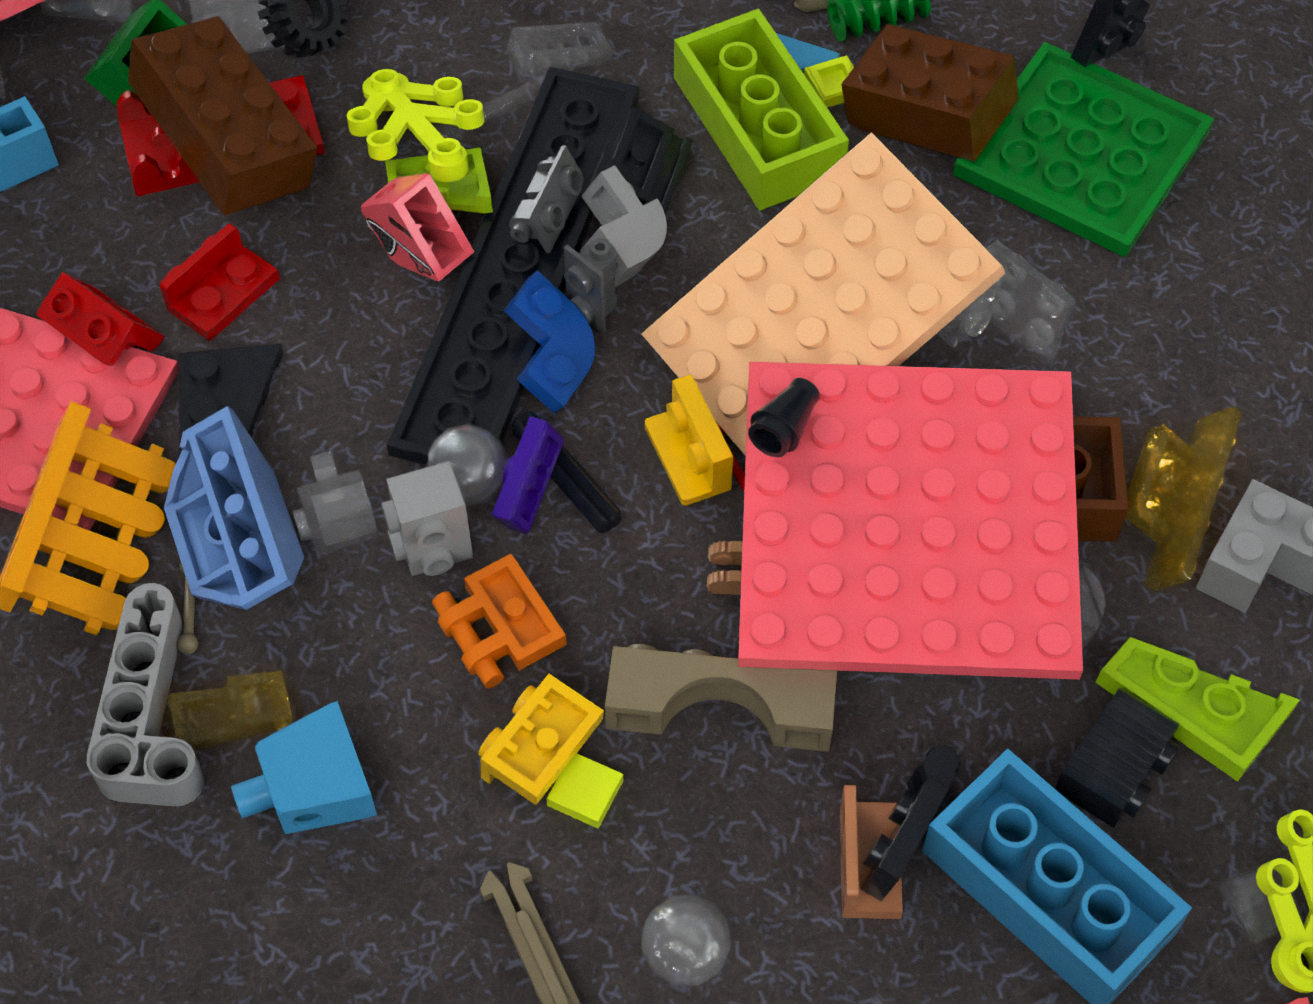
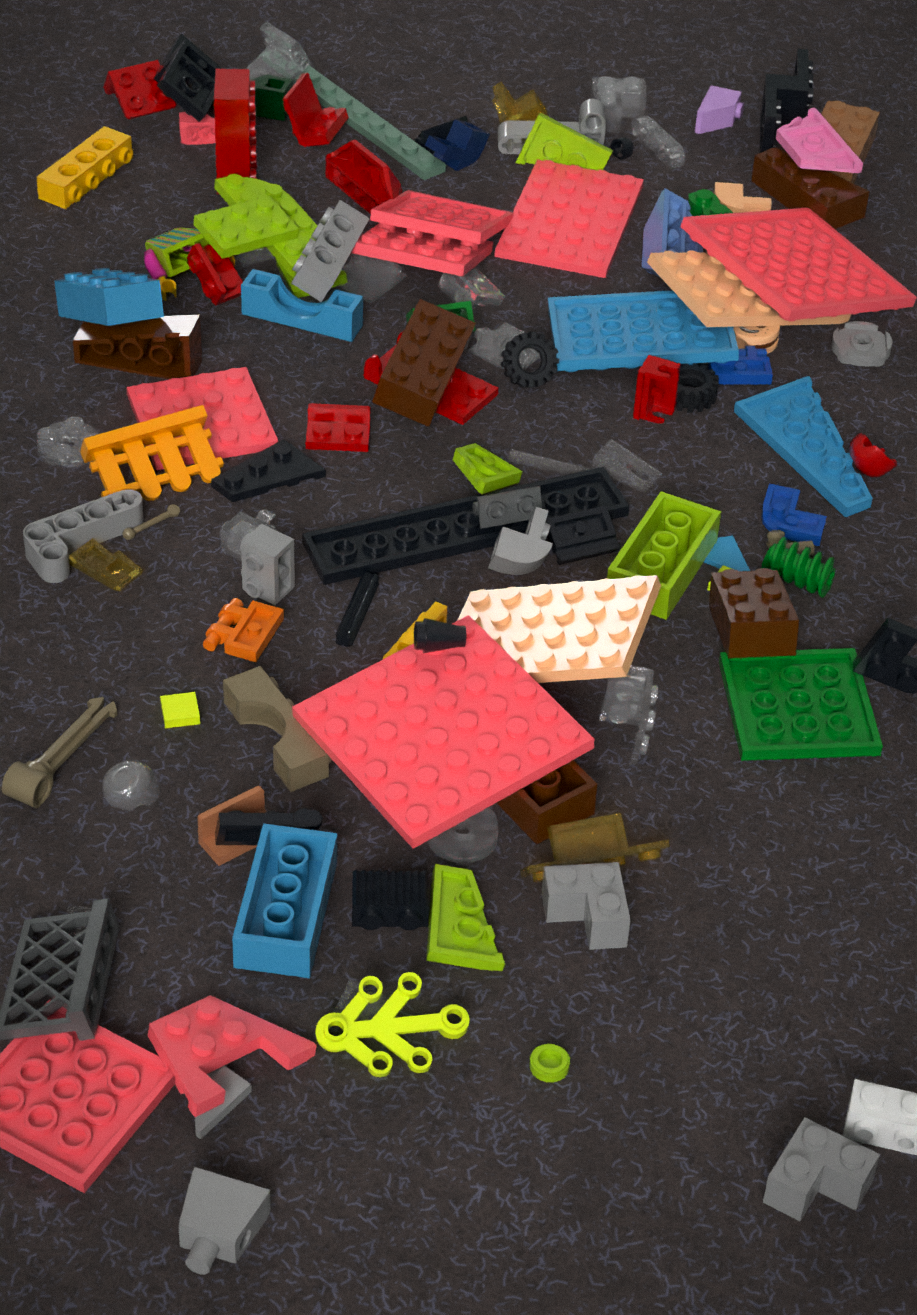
camera: 50 degrees right, 15 degrees down
(95, 320) = (271, 397): red bracket -> none
(230, 516) = (208, 501): medium blue wedge -> none
(308, 775) = (95, 606): dark azure torso -> none
(392, 92) = (521, 422): neon yellow plant -> none
(417, 226) = (437, 468): coral torso -> none
(475, 459) = (317, 567): clear hair -> none
(528, 475) = (332, 588): dark purple plate -> none
(540, 738) = (186, 671): yellow bracket -> none
(564, 339) = (431, 564): blue plate -> none
(590, 281) = (472, 537): dark grey hinge -> none

